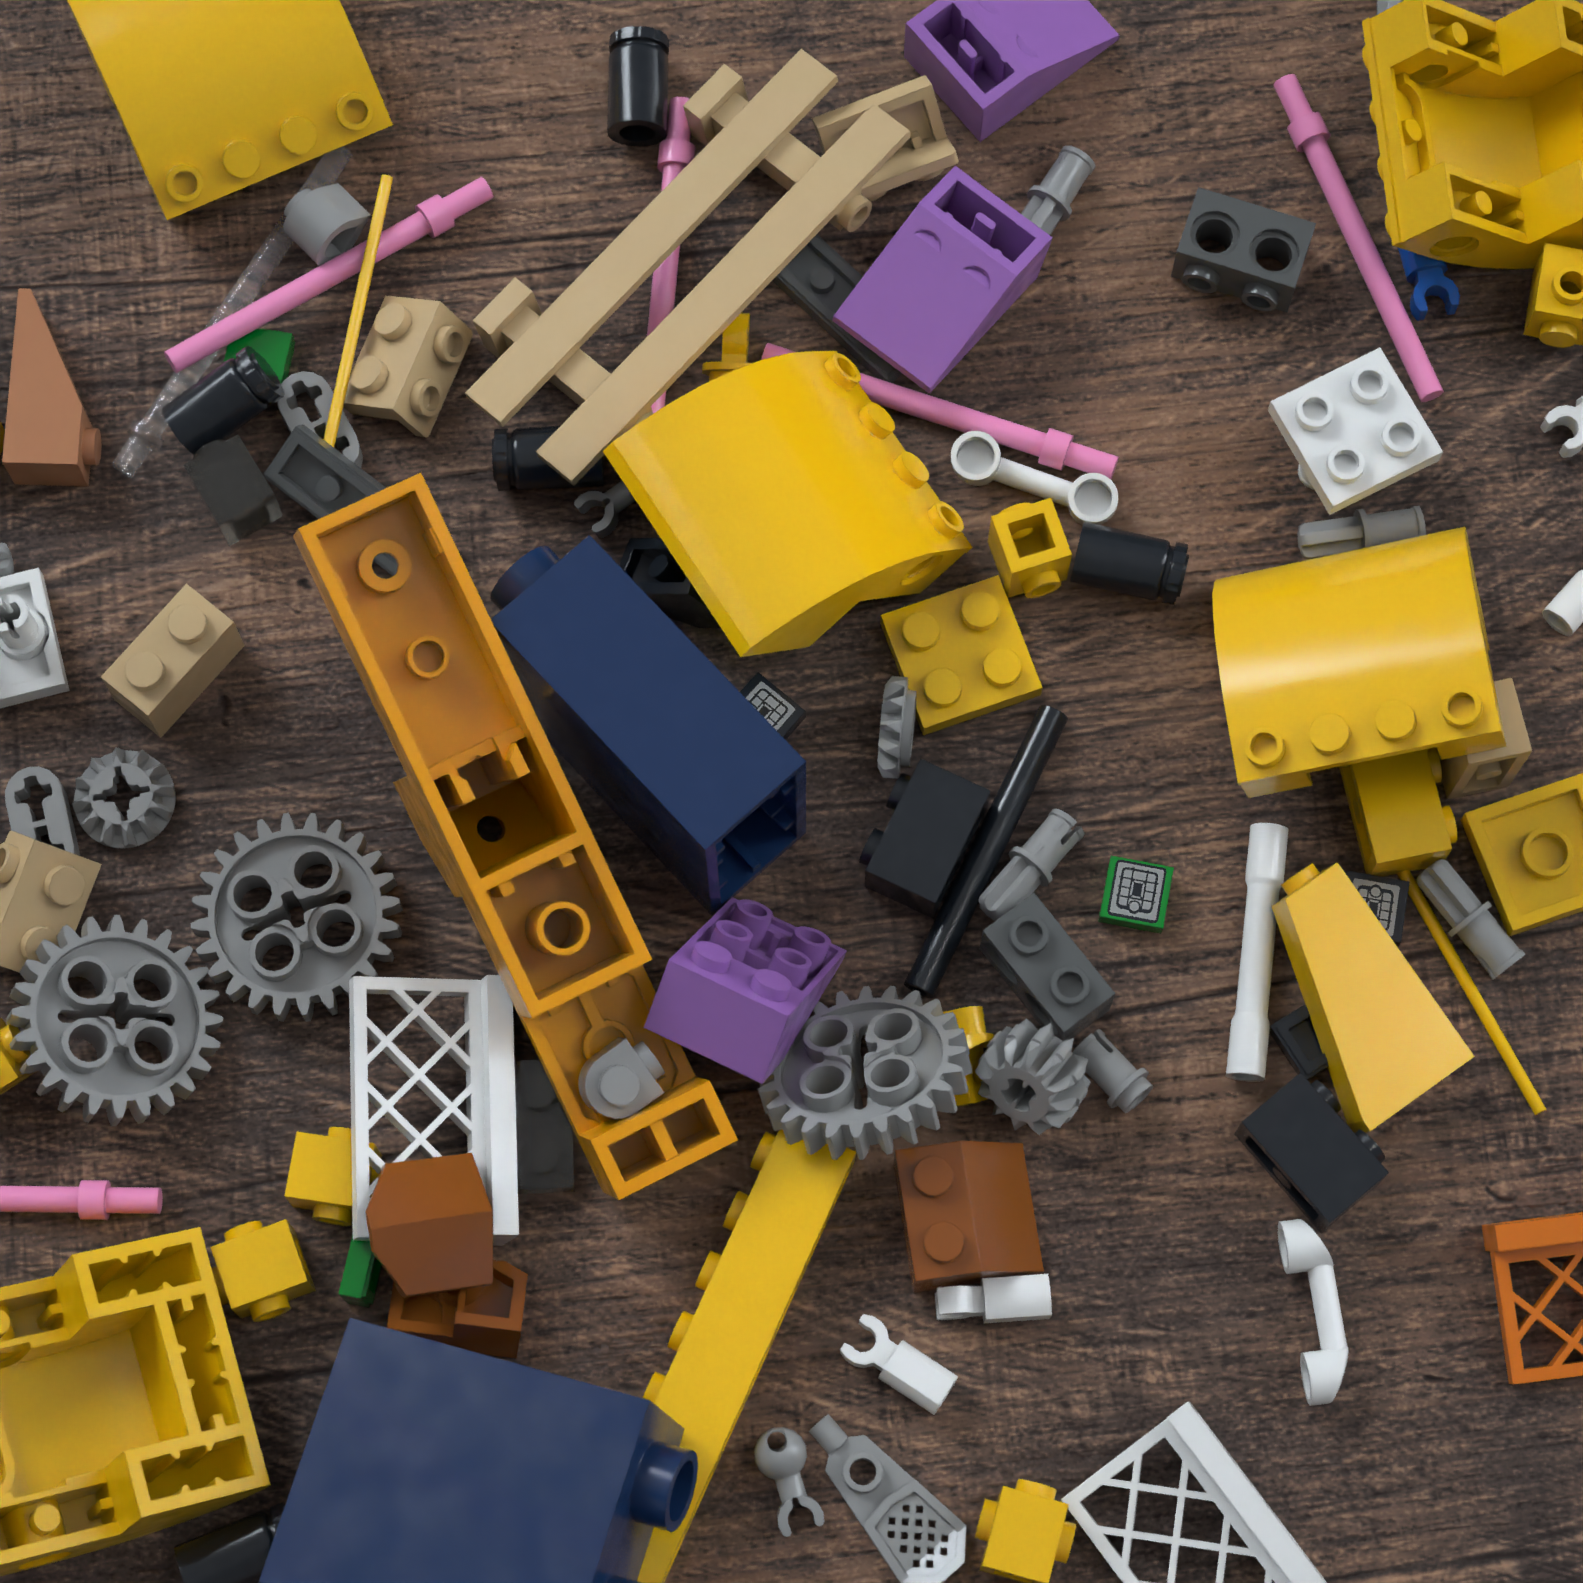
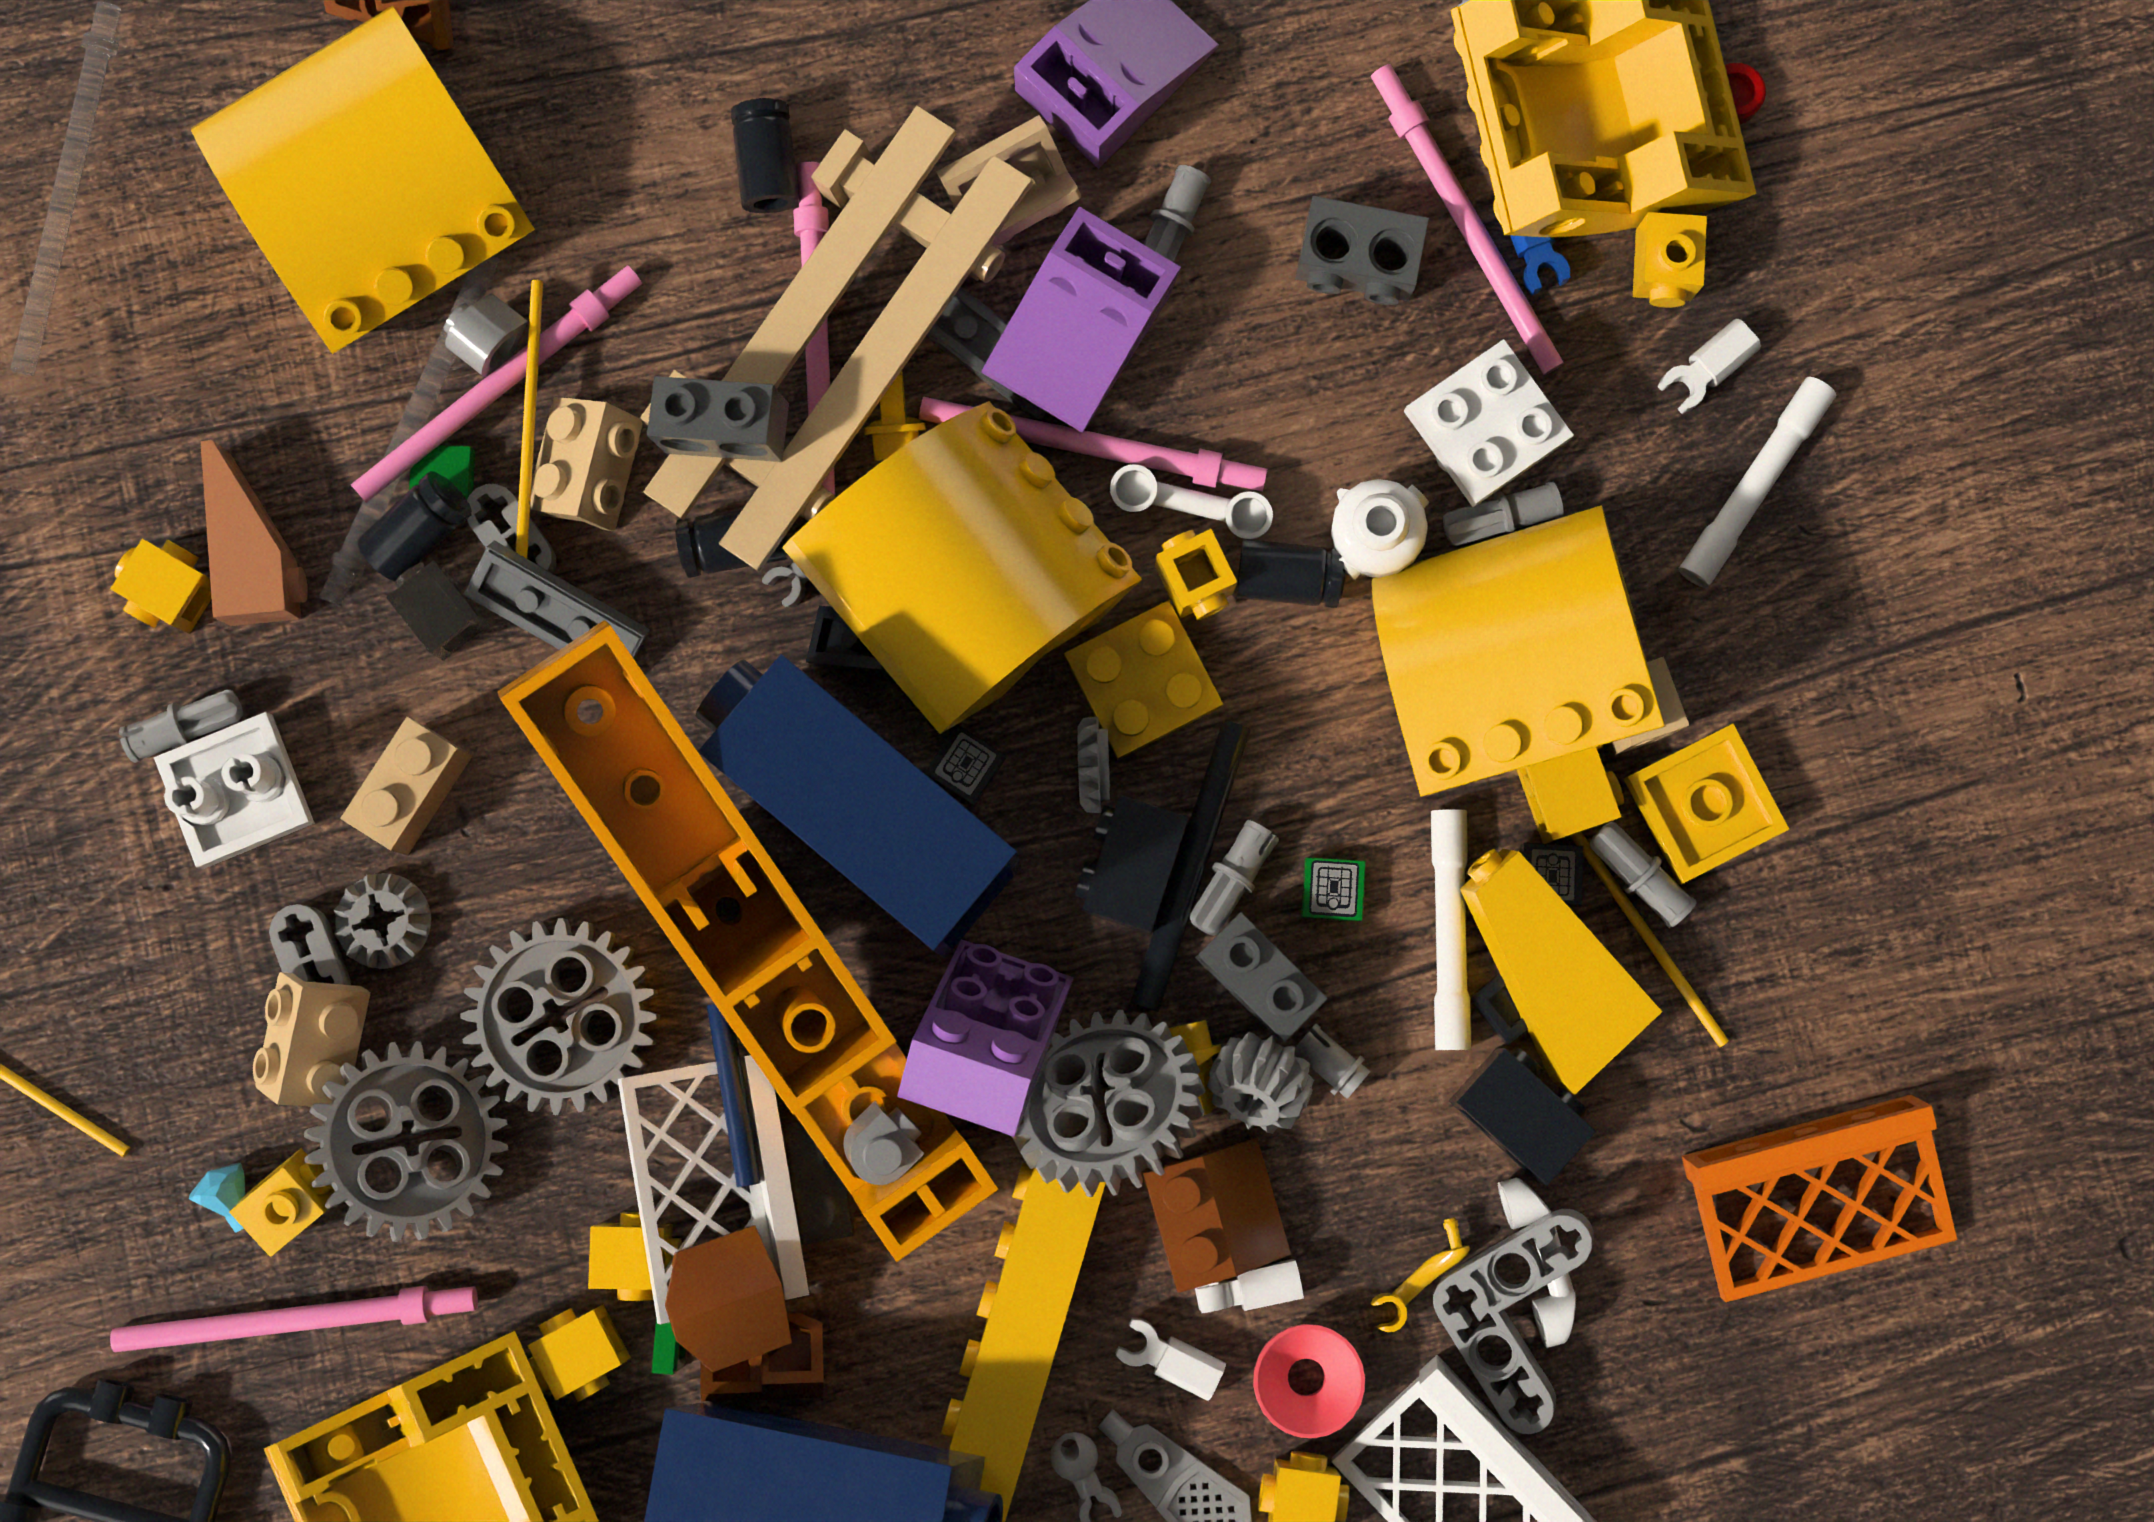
camera: 10 degrees left, 10 degrees up
(469, 1015) = (734, 1099): none -> dark blue bar
(554, 323) = (718, 418): none -> dark grey brick
(1052, 1366) = (1329, 1406): none -> coral piece
(1185, 1313) = (1423, 1276): none -> yellow piece
(1228, 524) = (1379, 527): none -> white piece
(1260, 1339) = (1494, 1296): none -> light grey beam

